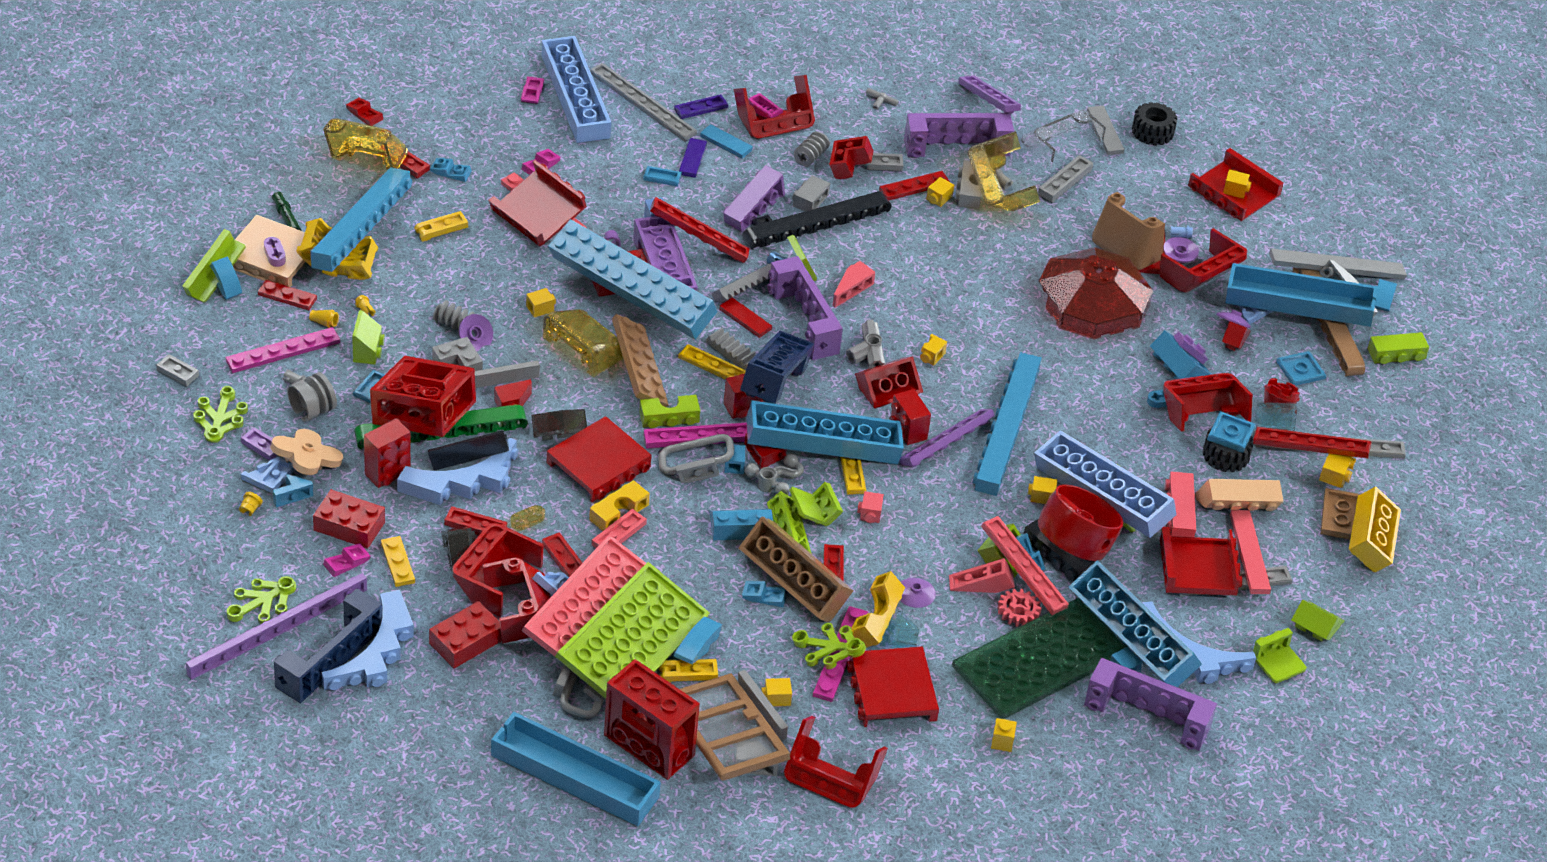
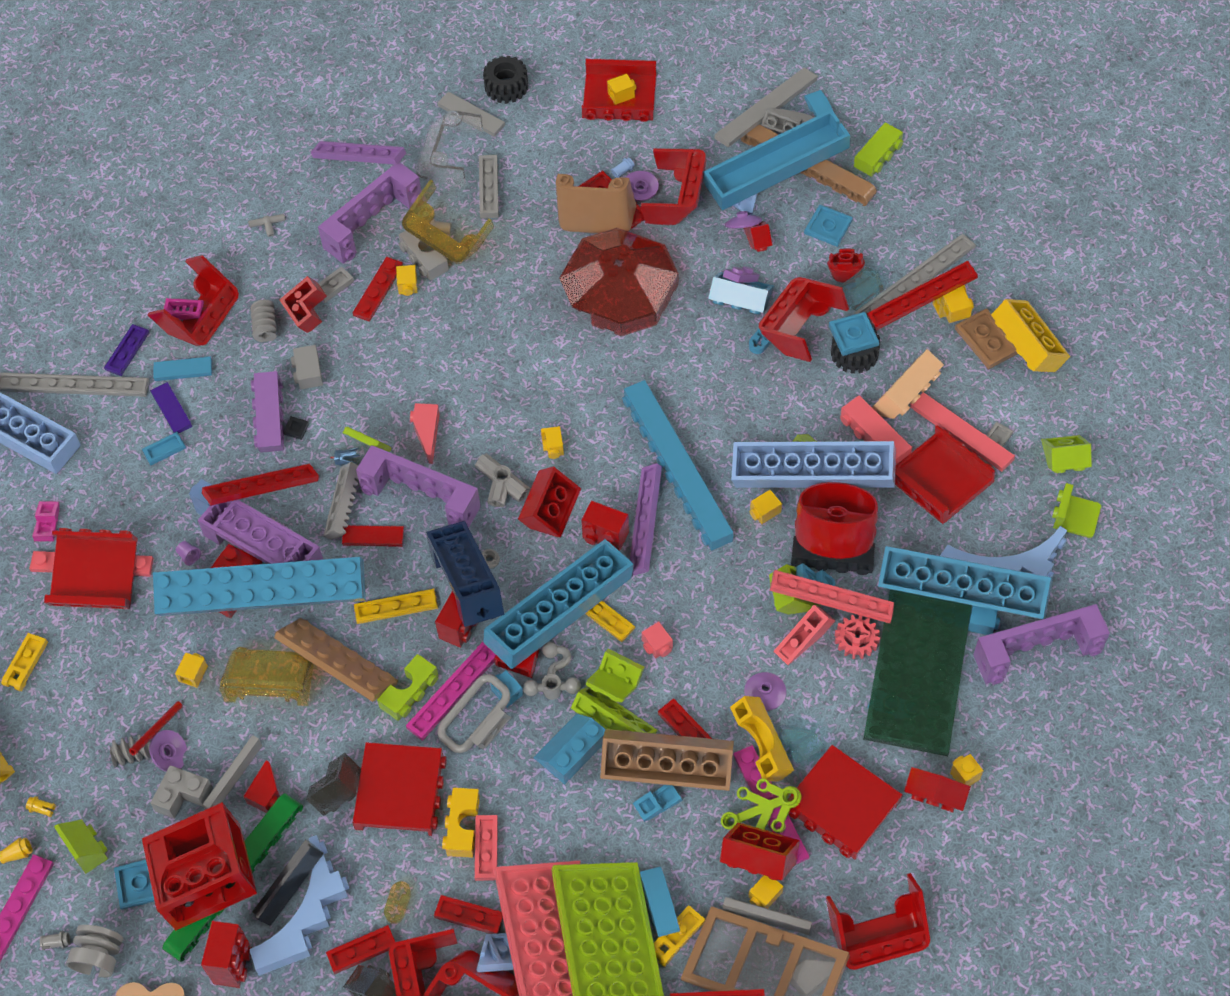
camera: 35 degrees left, 15 degrees up
(484, 312) = (155, 728): none -> red piece
(730, 348) = (405, 579): light grey gear -> none
(797, 661) = (759, 851): none -> red brick
(810, 383) = (491, 553): none -> light grey plate
(816, 219) = (335, 389): black beam -> none
(970, 726) = (936, 790): none -> red brick

